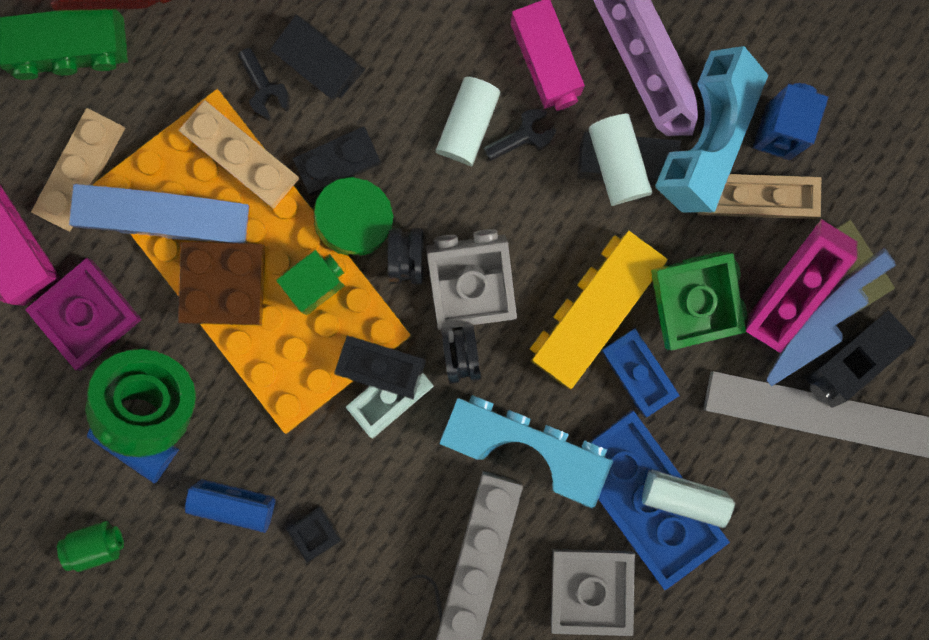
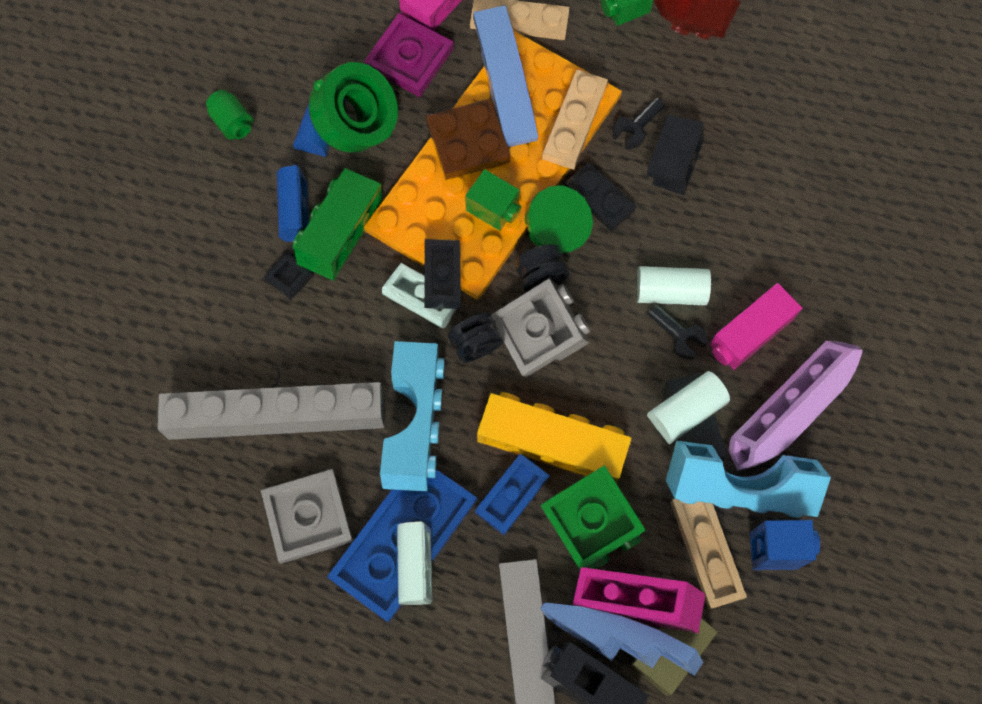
camera: 70 degrees right, 15 degrees down
(274, 463) = (337, 224): none -> green brick

